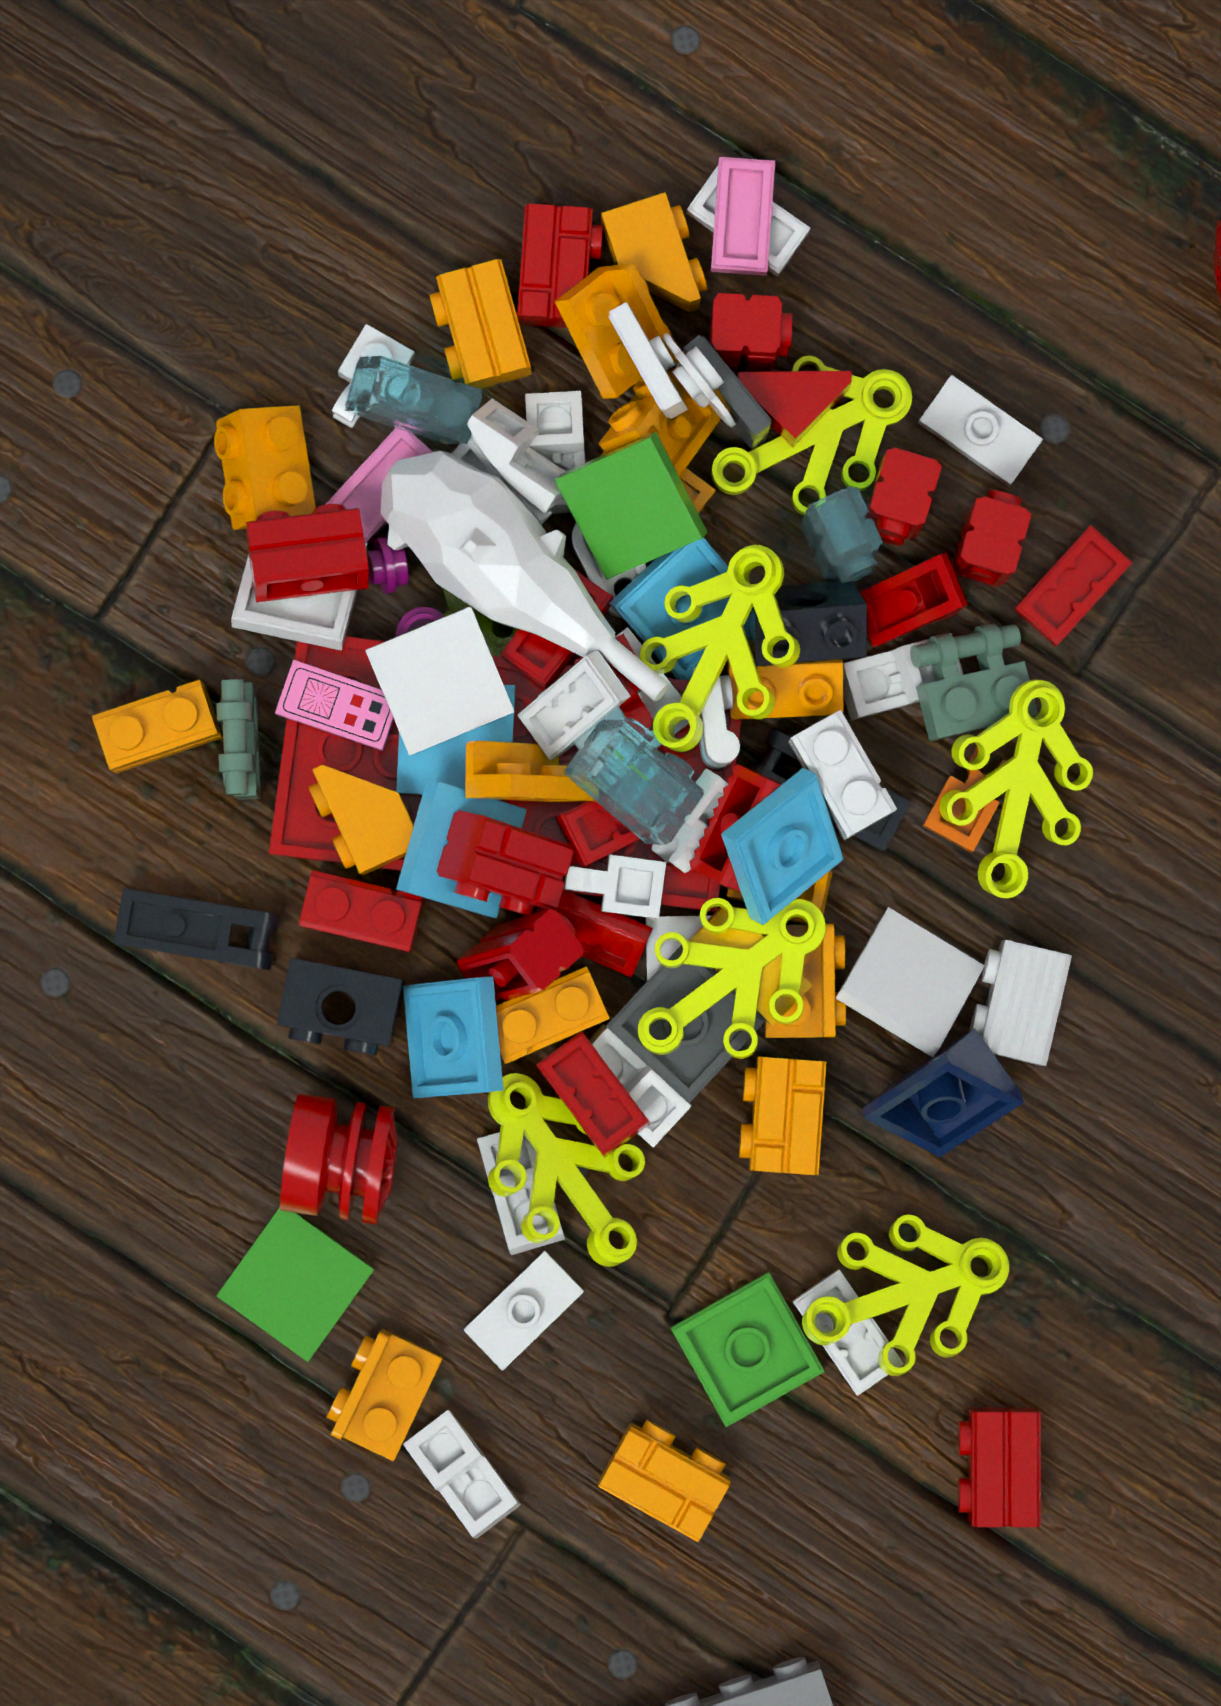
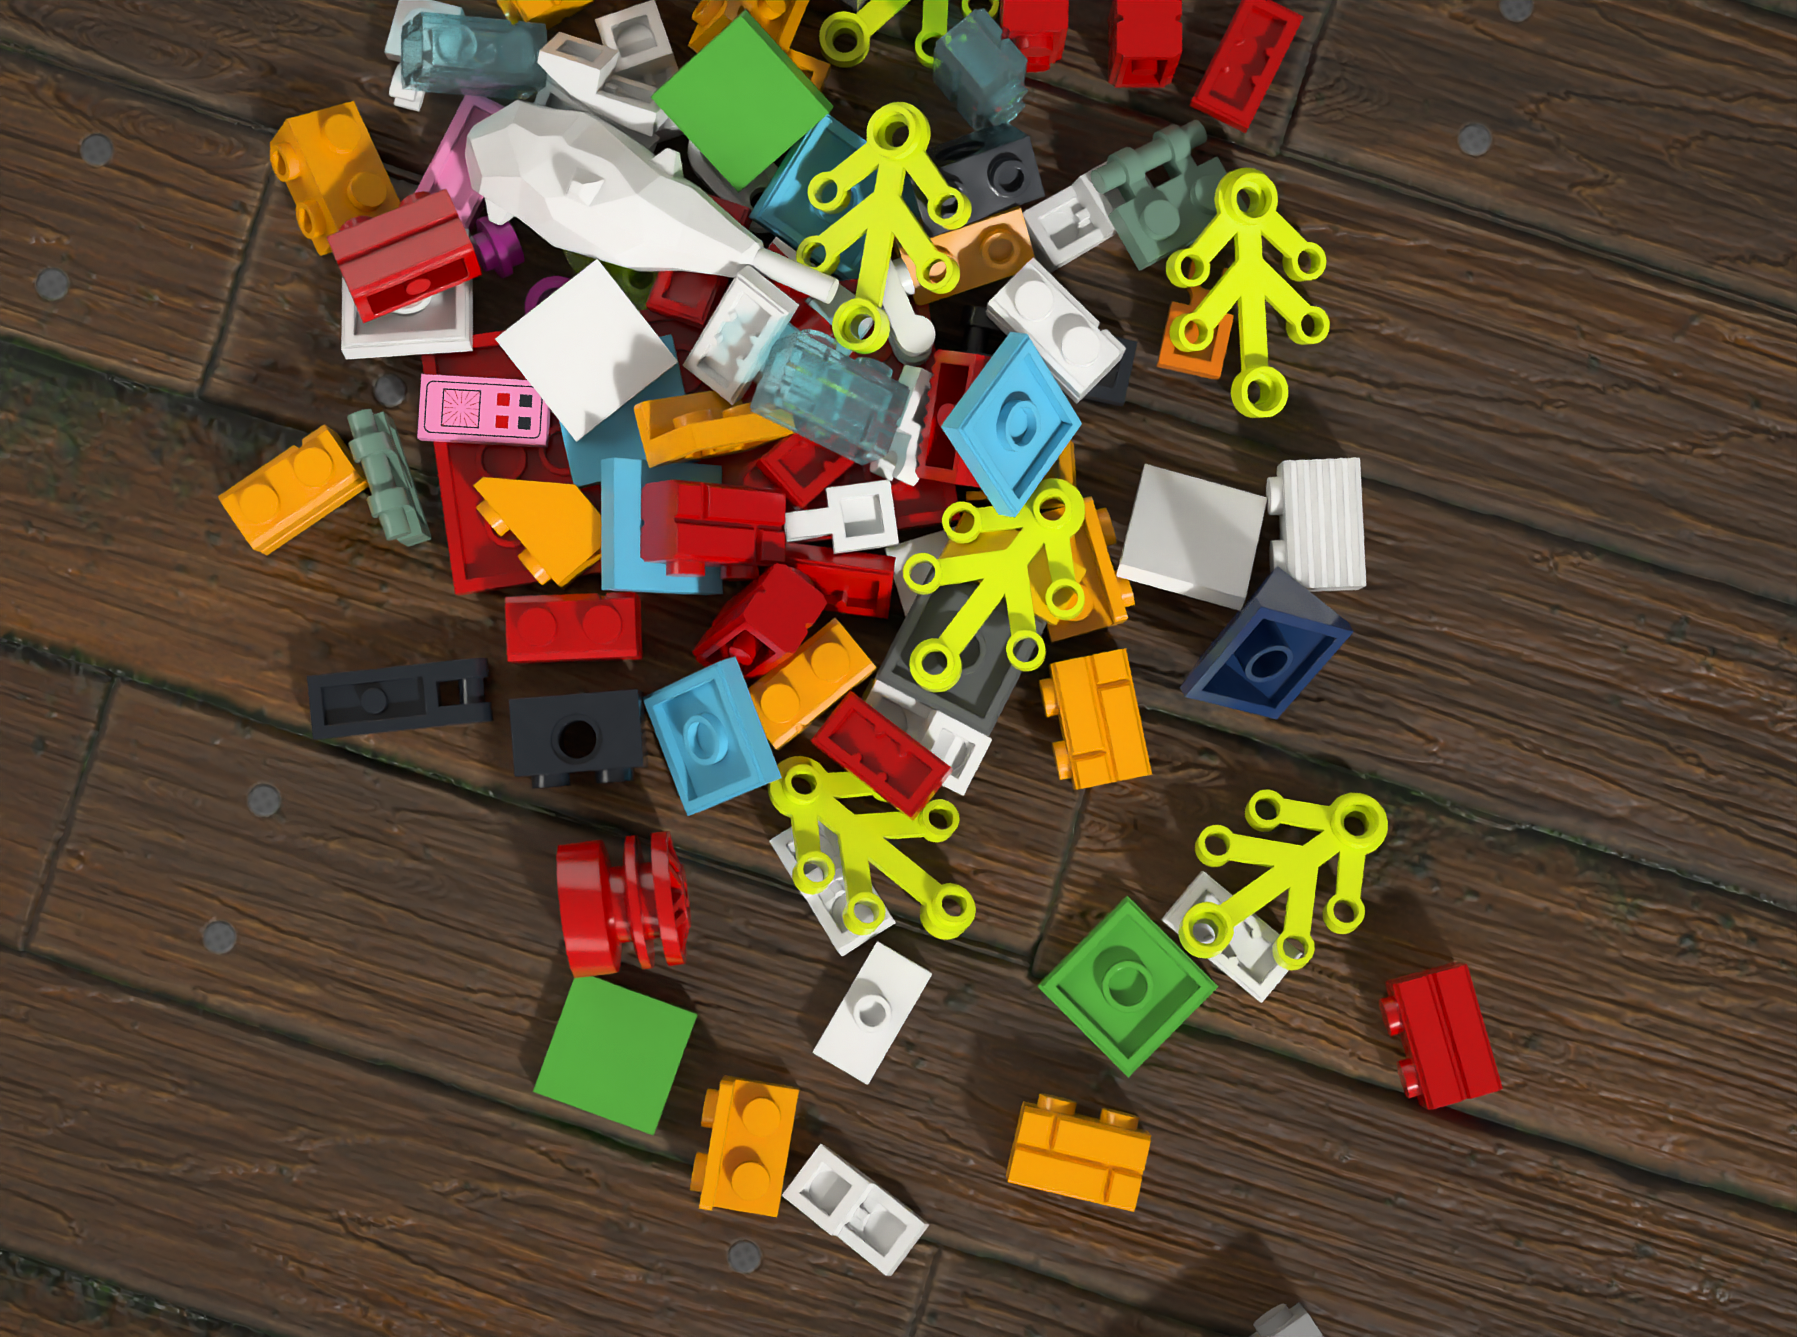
camera: 10 degrees left, 0 degrees up
(912, 600) = (1079, 120): red slope -> none

